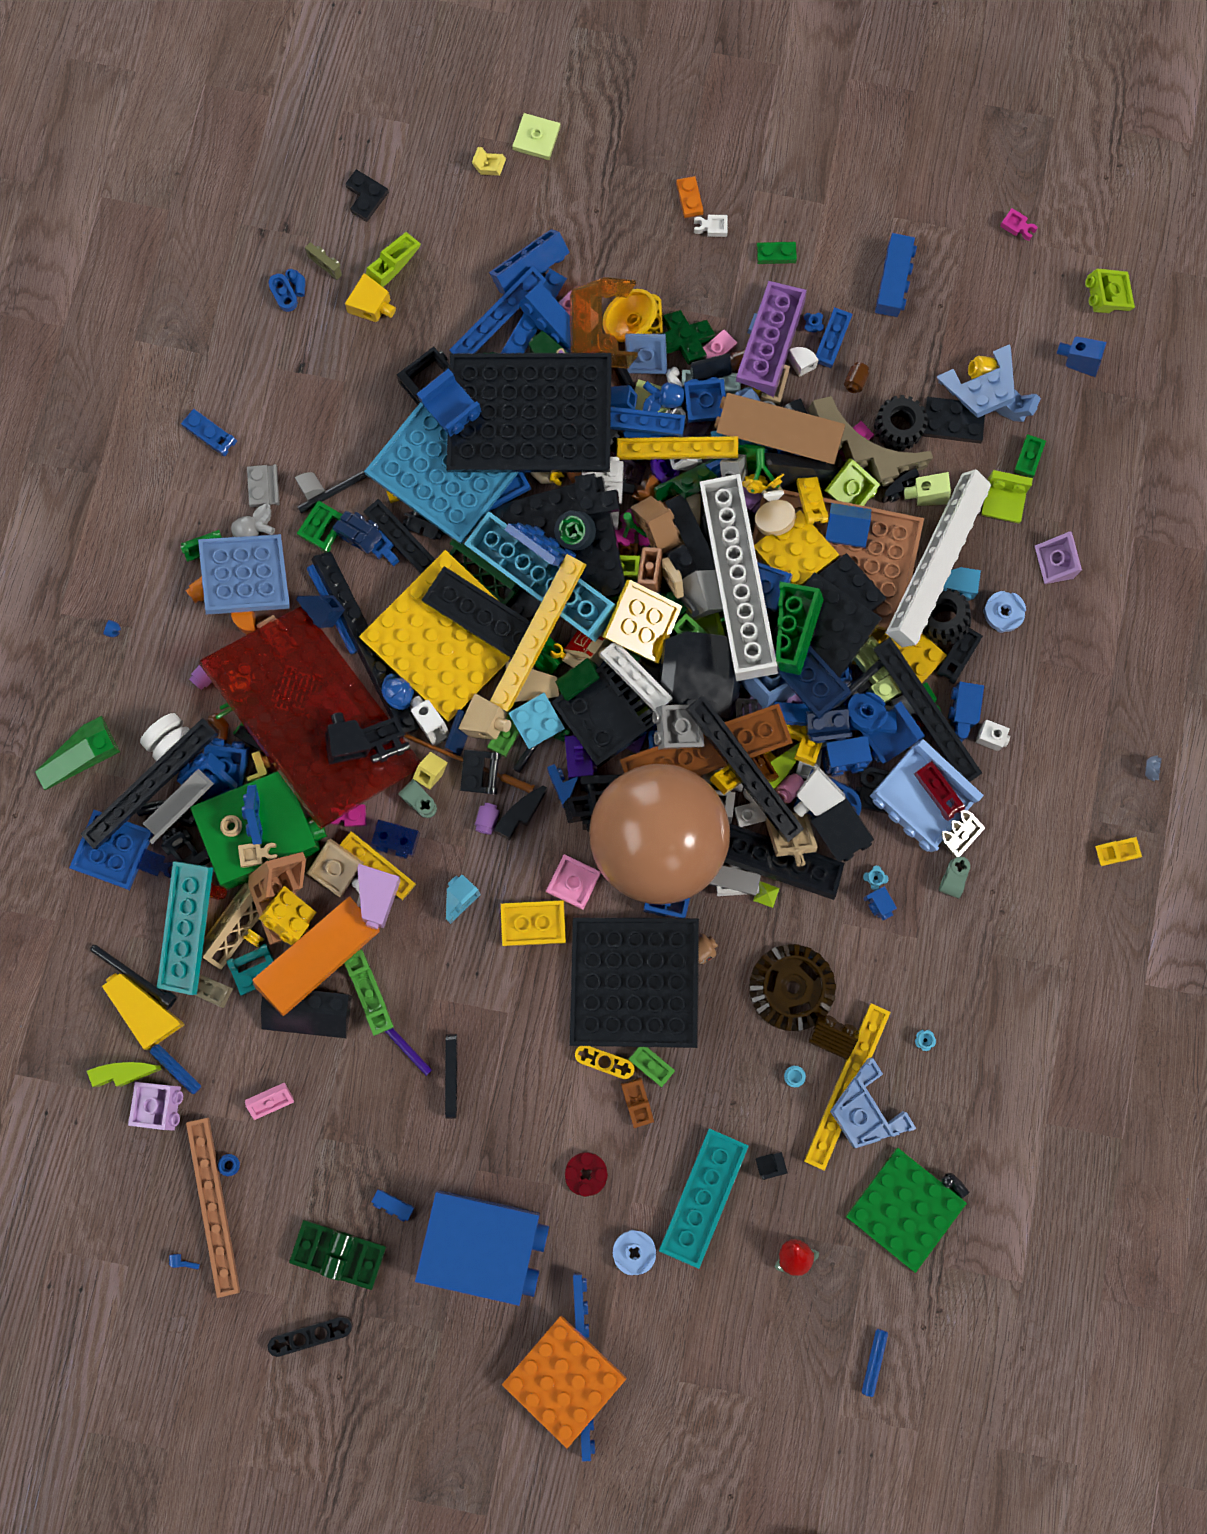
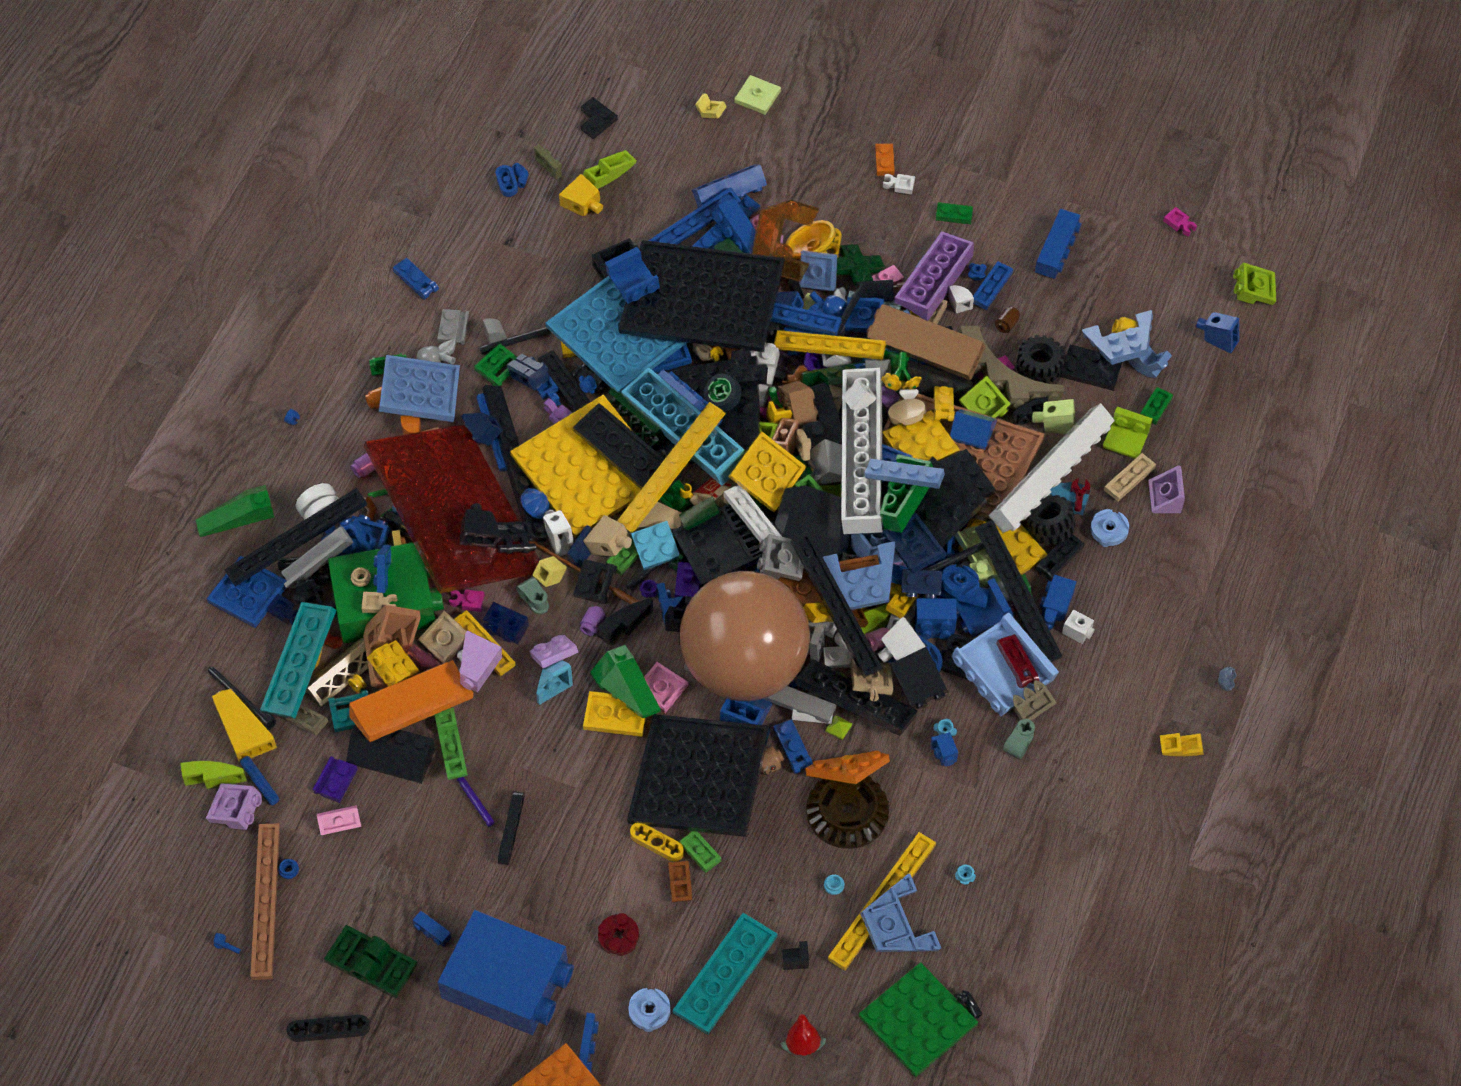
camera: 15 degrees right, 20 degrees down
(254, 1052) = (335, 779): none -> dark purple plate
(320, 898) = (422, 657): none -> clear pink pin
(401, 576) = (557, 414): none -> medium lavender plate
(424, 535) = (587, 384): none -> blue plate
(454, 865) = (553, 651): none -> lavender plate
(533, 769) = (648, 584): none -> dark purple plate
(533, 885) = (623, 678): none -> green wedge
(635, 542) = (775, 415): none -> yellow panel
(691, 392) = (850, 307): none -> black bar
(723, 926) = (792, 746): none -> blue plate
(725, 516) = (858, 396): none -> white brick
(773, 741) = (865, 585): none -> medium blue wing
(788, 945) = (848, 767): none -> orange plate
(794, 608) = (904, 473): none -> medium blue plate
(834, 1036) = (876, 852): dark brown brick -> none
(971, 587) = (1079, 493): none -> dark red bar
(1016, 547) = (1130, 477): none -> tan plate

